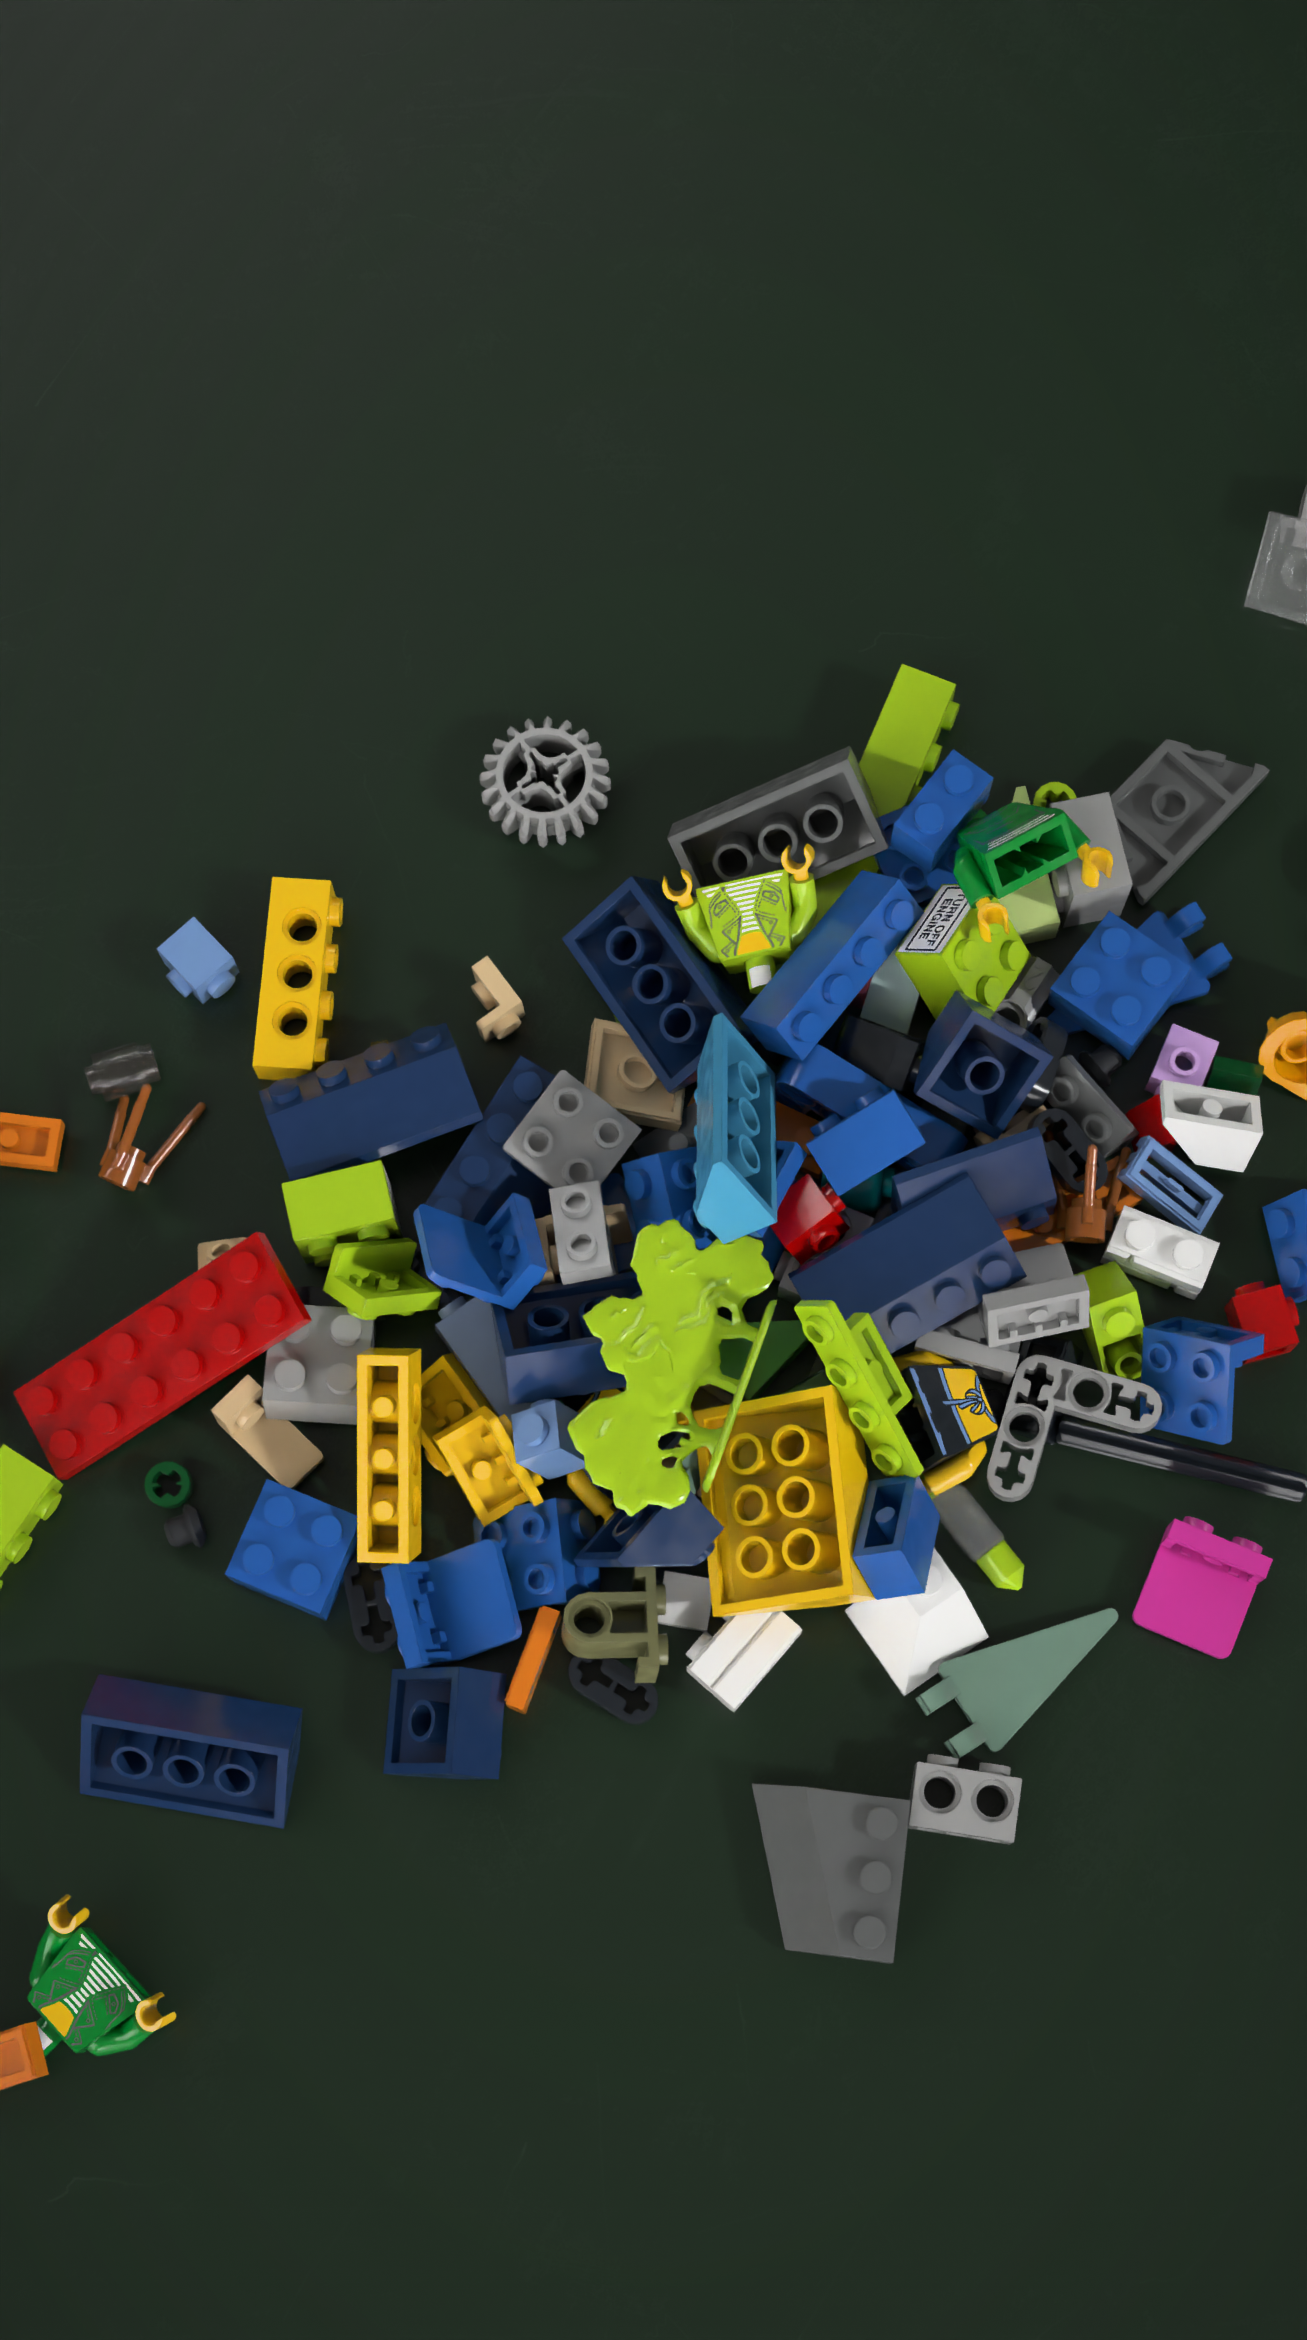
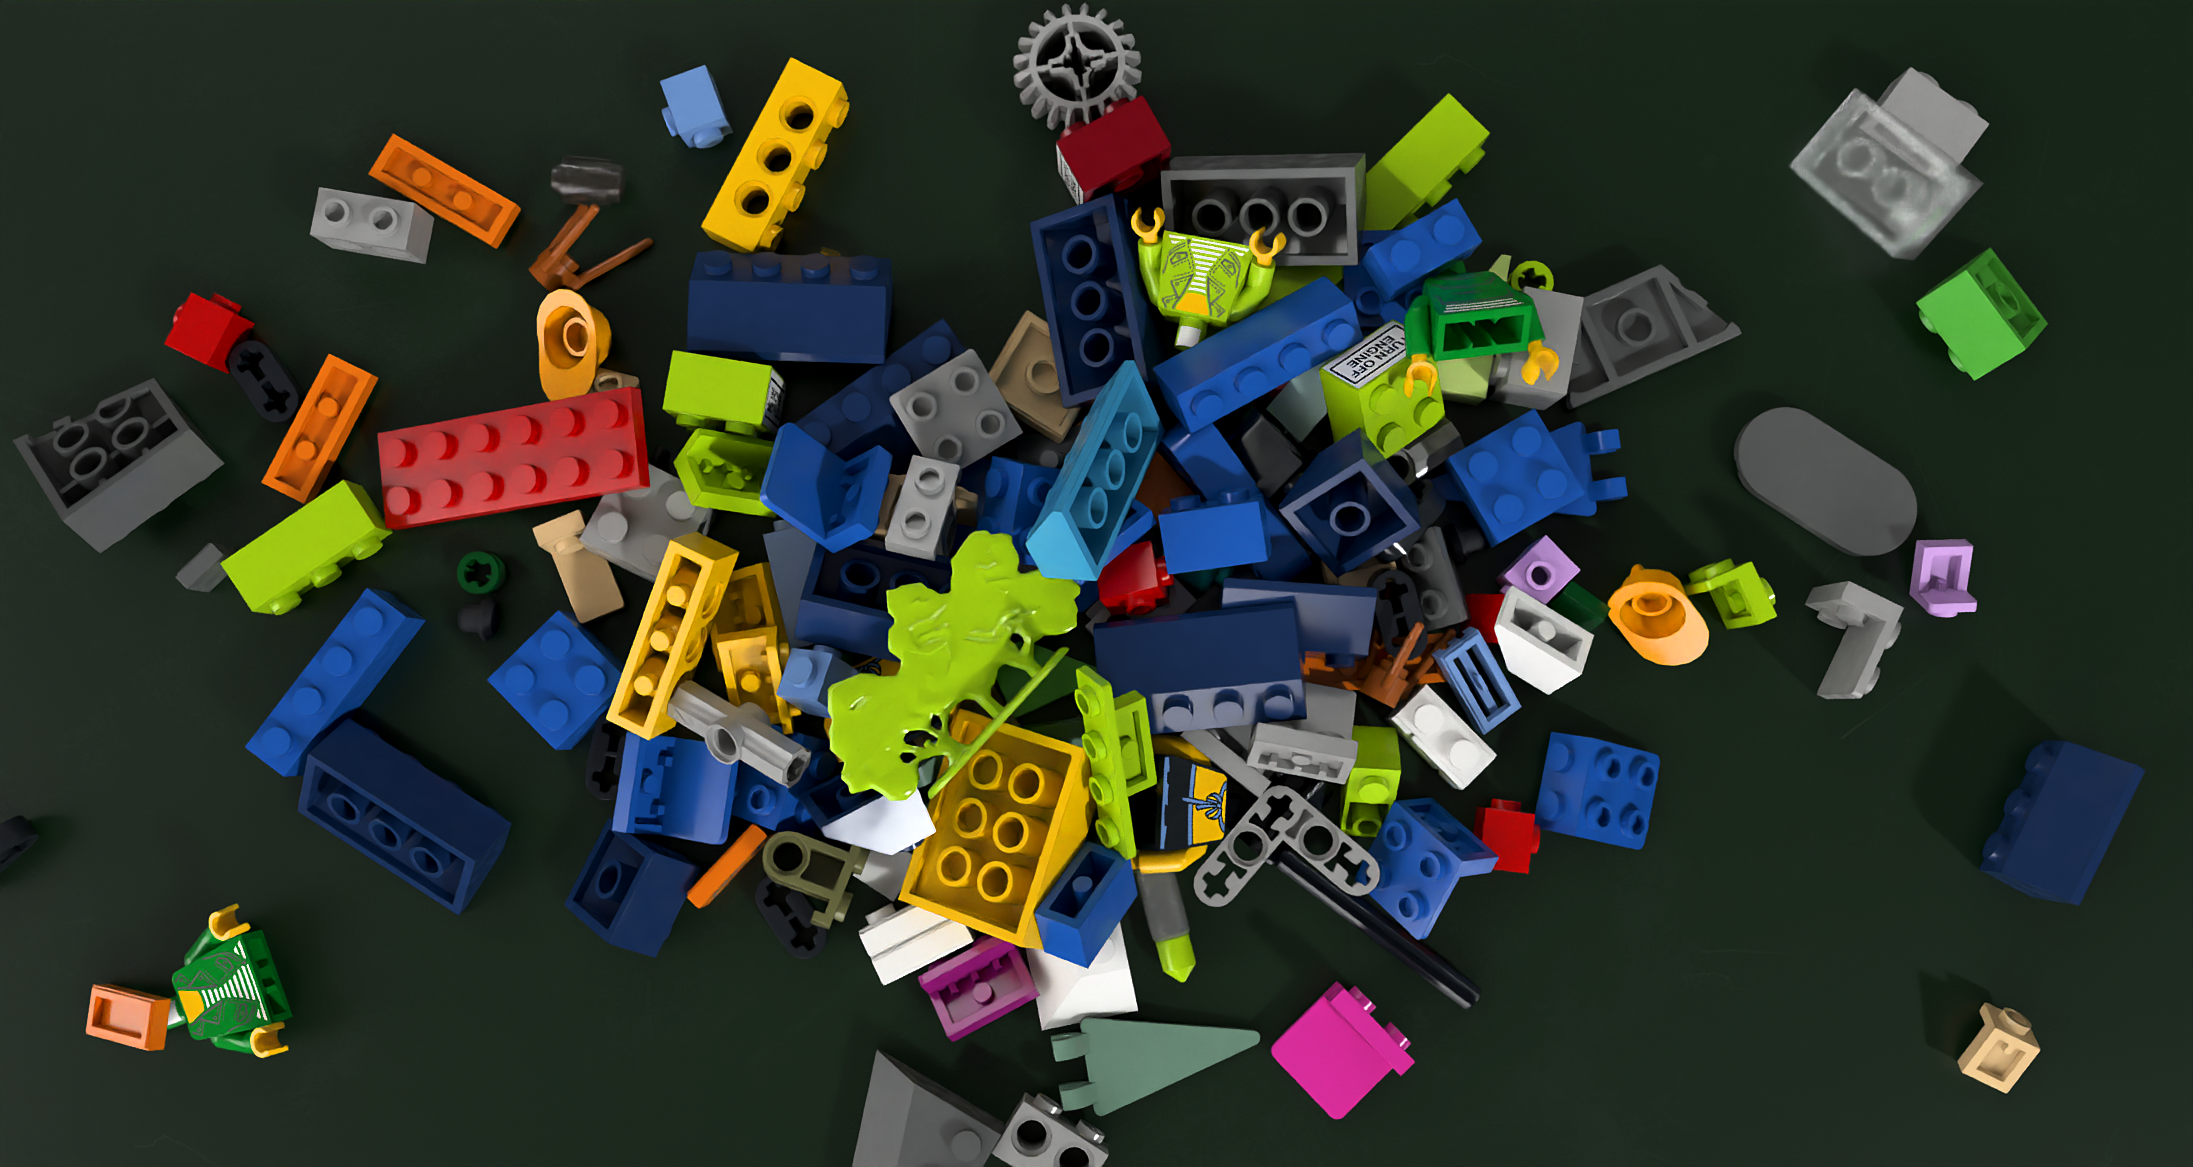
camera: 20 degrees right, 10 degrees up
(72, 1645) = (336, 680): none -> blue brick
(169, 1227) = (571, 344): none -> light orange piece
(493, 1519) = (739, 733): none -> light grey piece
(495, 991) = (949, 247): tan bracket -> none
(615, 840) = (1113, 152): none -> dark red brick
(824, 1673) = (978, 985): none -> magenta bracket

